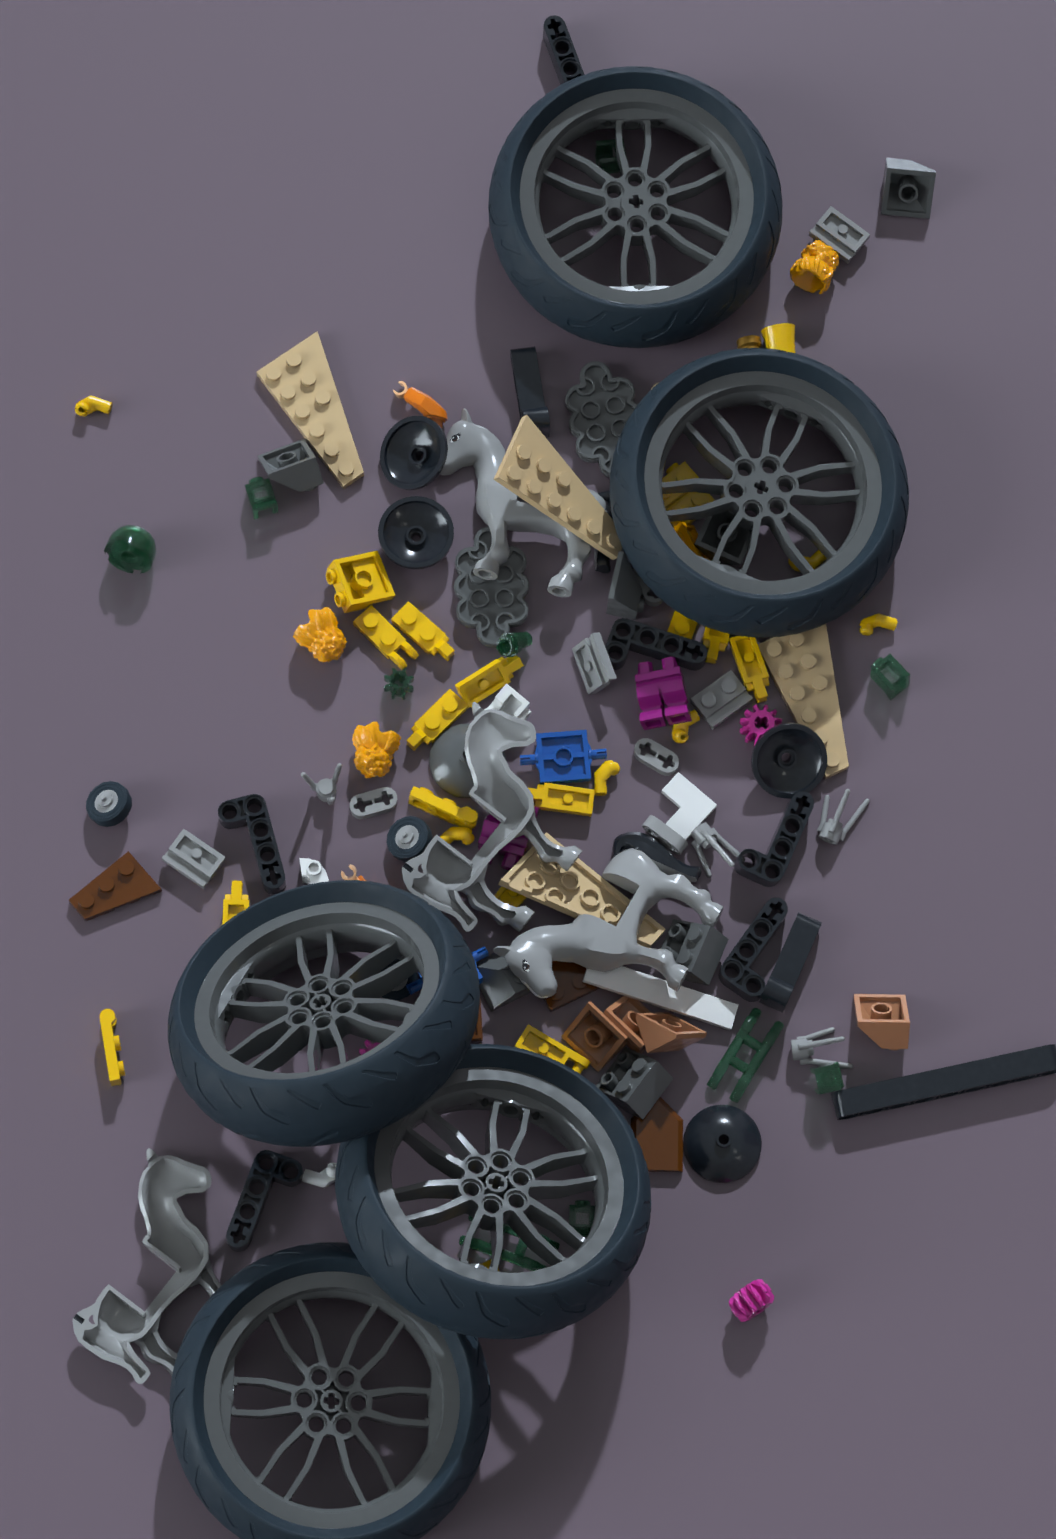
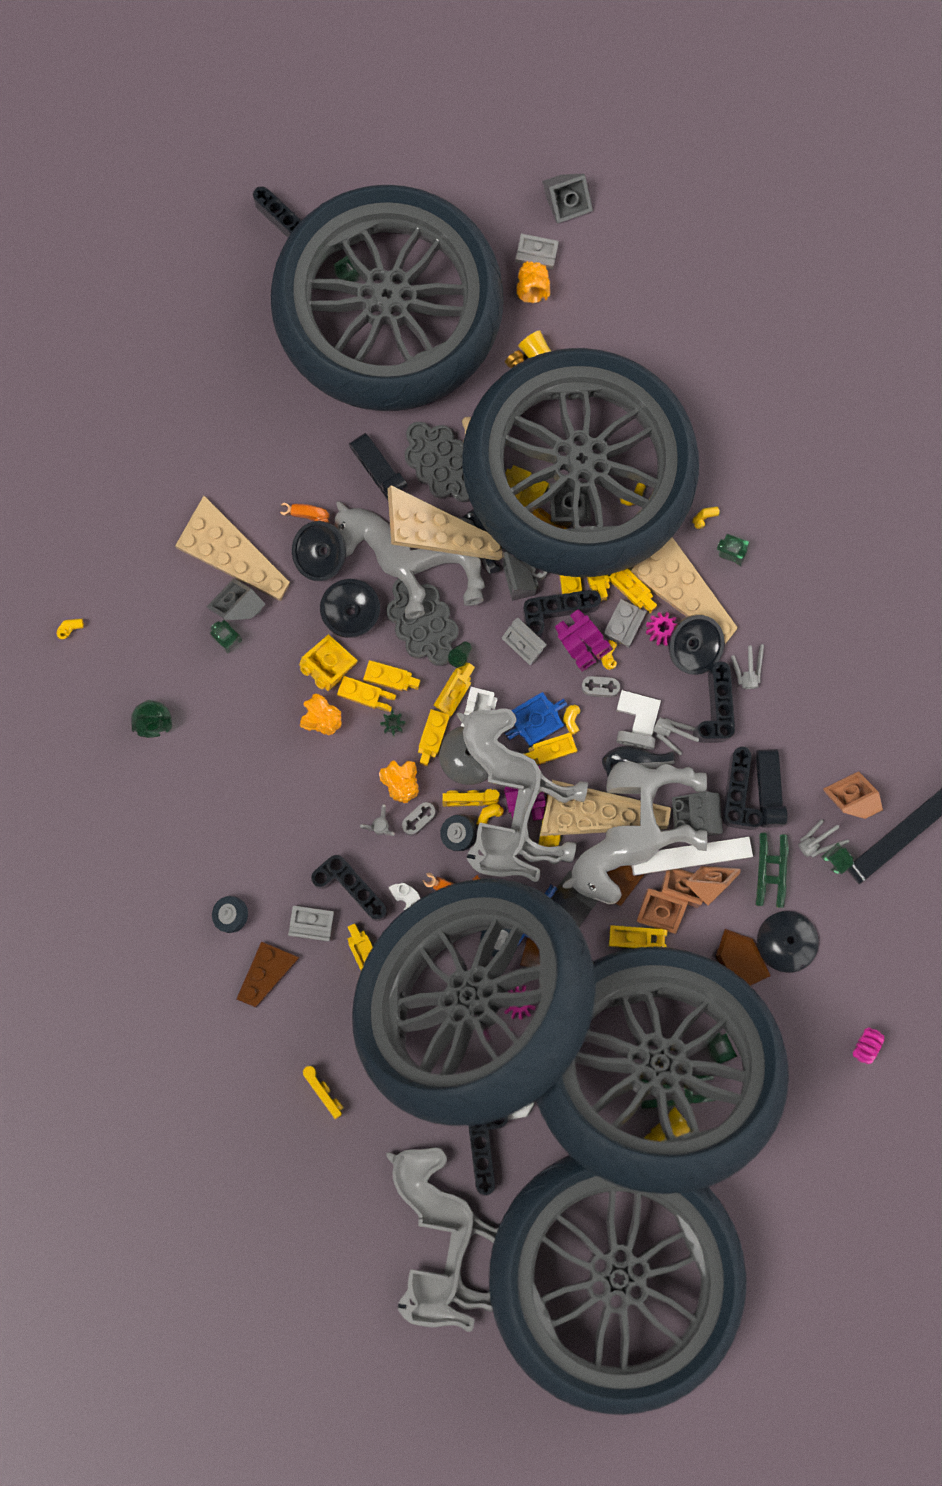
camera: 25 degrees left, 5 degrees up
(634, 1082) = (705, 929): dark grey slope -> none

